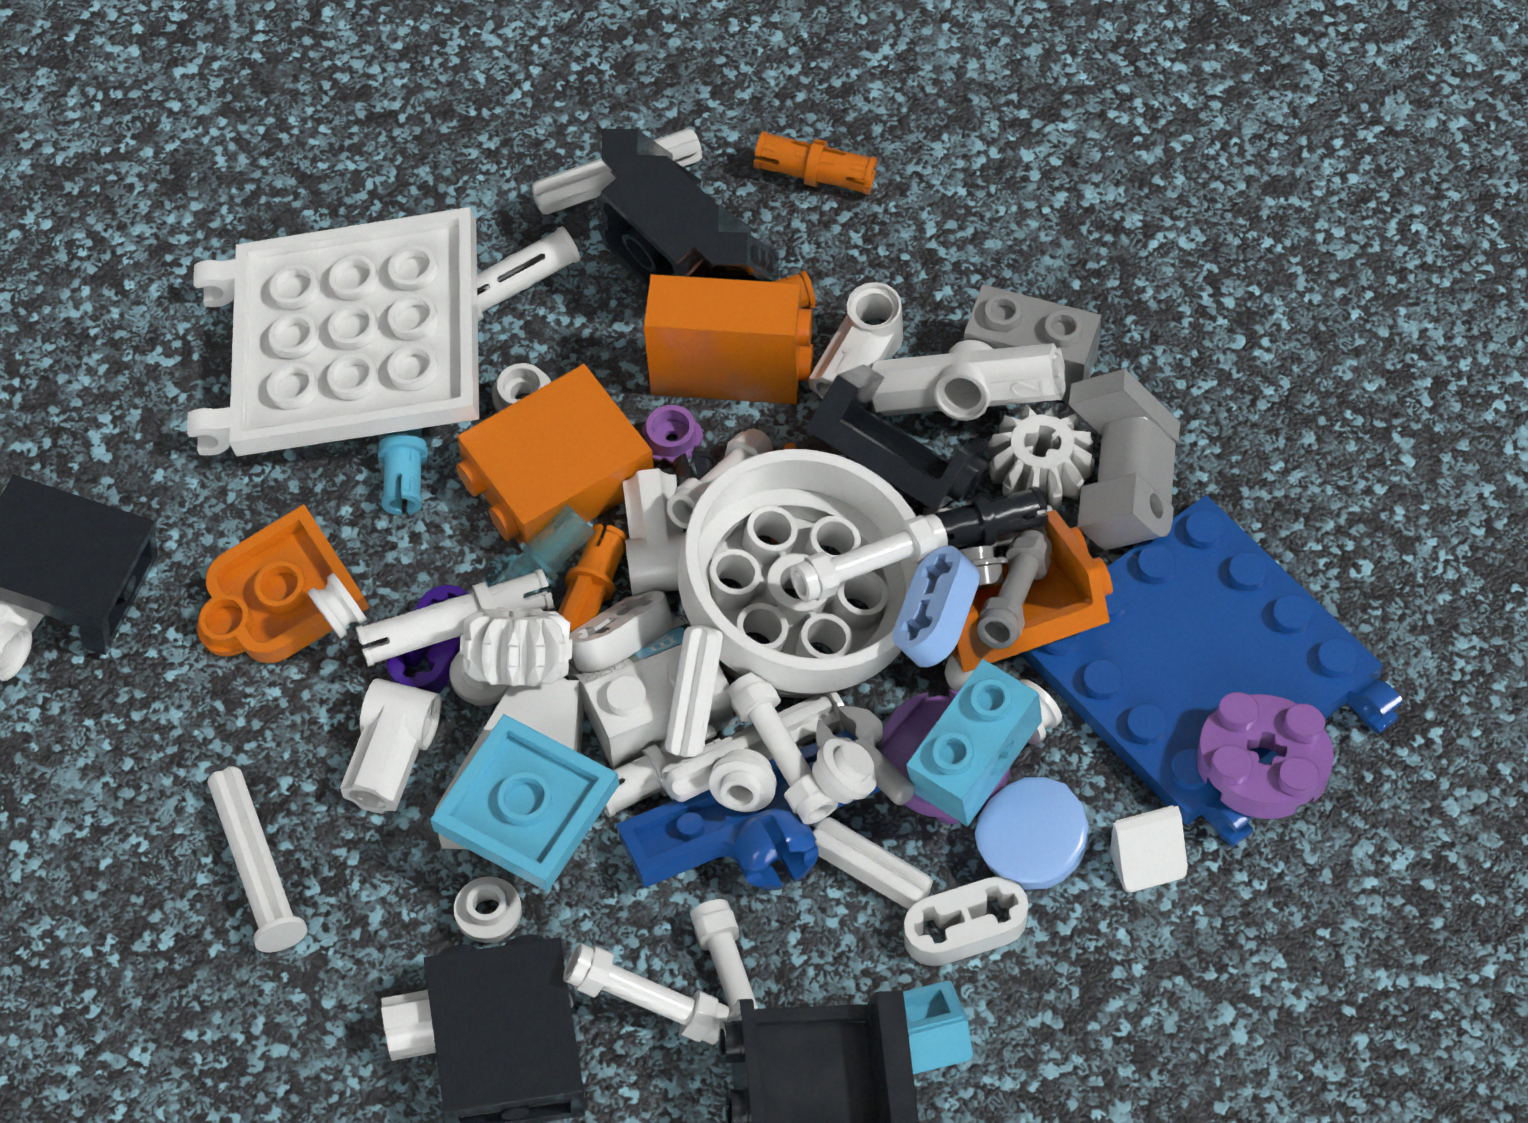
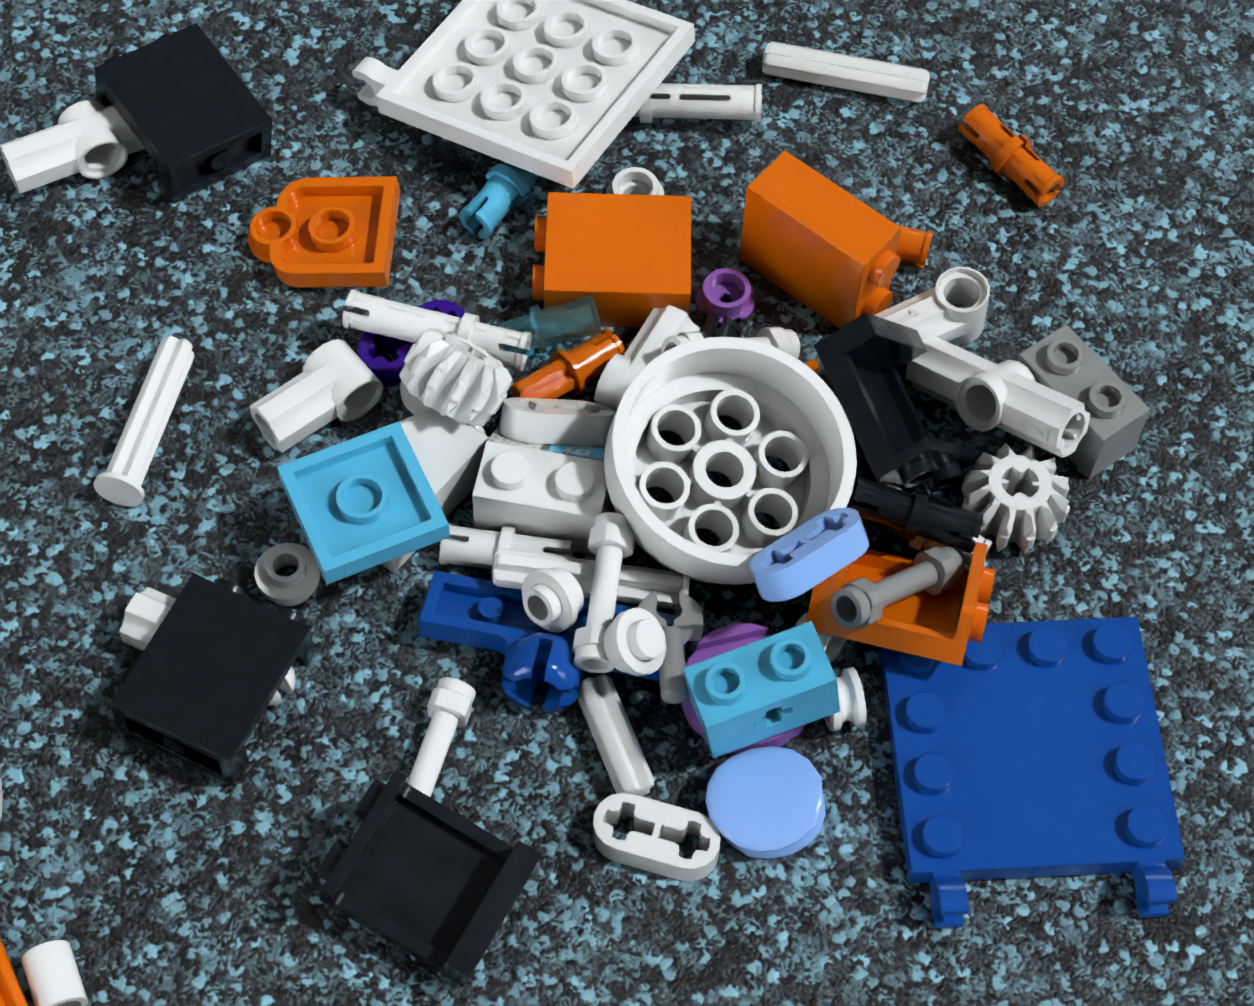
camera: 30 degrees right, 0 degrees up
(336, 605) = (351, 264): white bush -> none
(592, 971) = (312, 670): white bar -> none
(665, 222) = (851, 123): black slope -> none
(693, 691) = (561, 498): white axle -> none
(821, 576) = (727, 468): white bar -> none
(936, 1027) = (558, 904): medium azure slope -> none
(989, 566) = (885, 552): light grey plate -> none
(1133, 461) = (1089, 550): light grey piece -> none
(1149, 849) = (856, 880): white slope -> none
(1271, 723) = (1035, 837): medium lavender plate -> none

